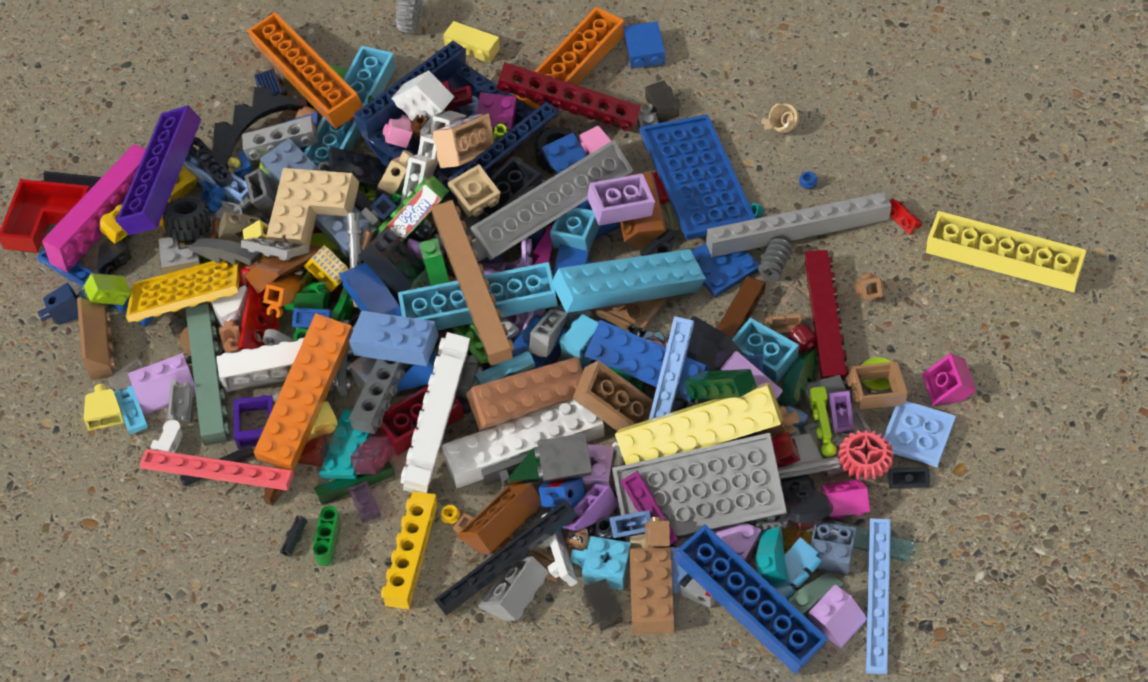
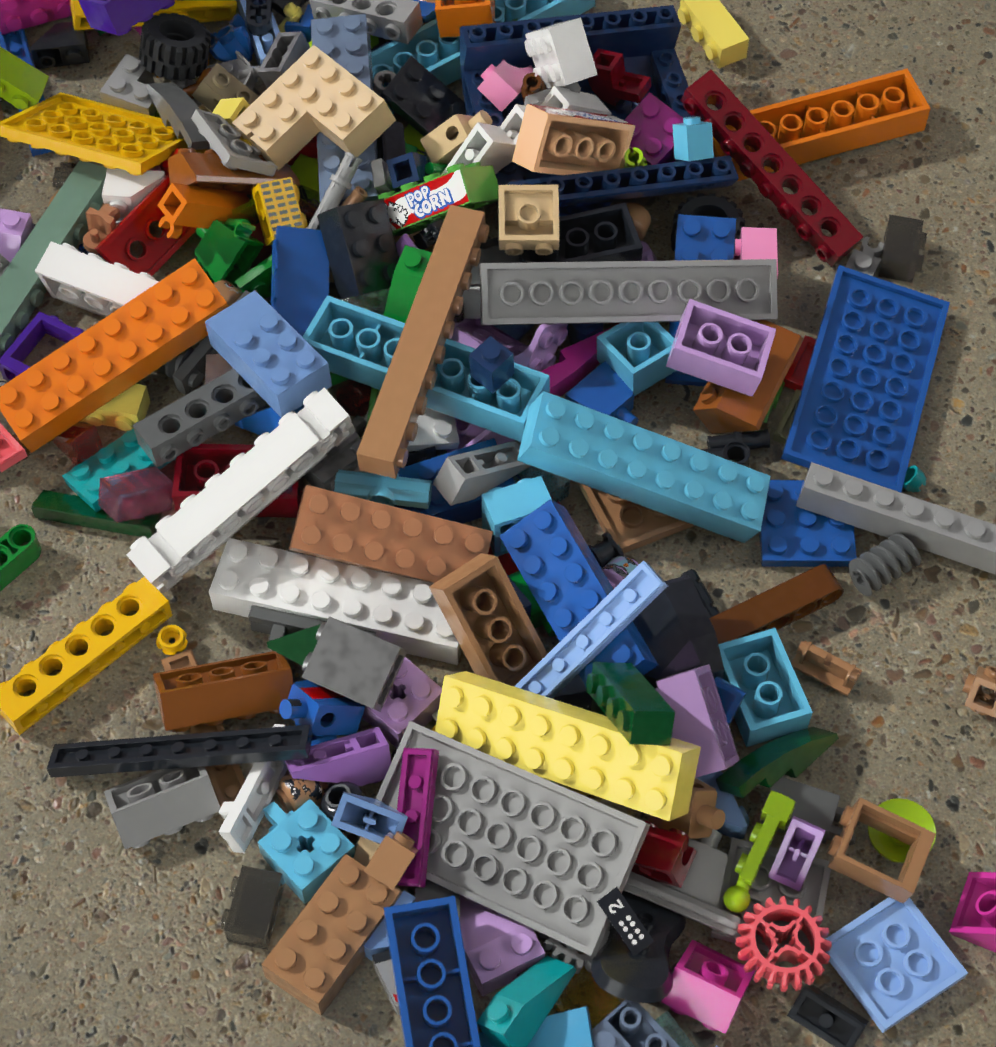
camera: 30 degrees right, 5 degrees up
(274, 337) = (151, 263): light grey beam -> none
(303, 317) = (216, 266): blue plate -> none
(364, 502) = (83, 550): clear purple plate -> none
(518, 273) = (491, 364): none -> dark blue brick
(522, 104) = (693, 139): none -> medium azure brick
(644, 45) = (937, 158): blue brick -> none
(791, 486) = (625, 921): none -> black sticker
(803, 337) = (832, 705): dark red head -> none
(824, 314) = (890, 693): dark red brick -> none

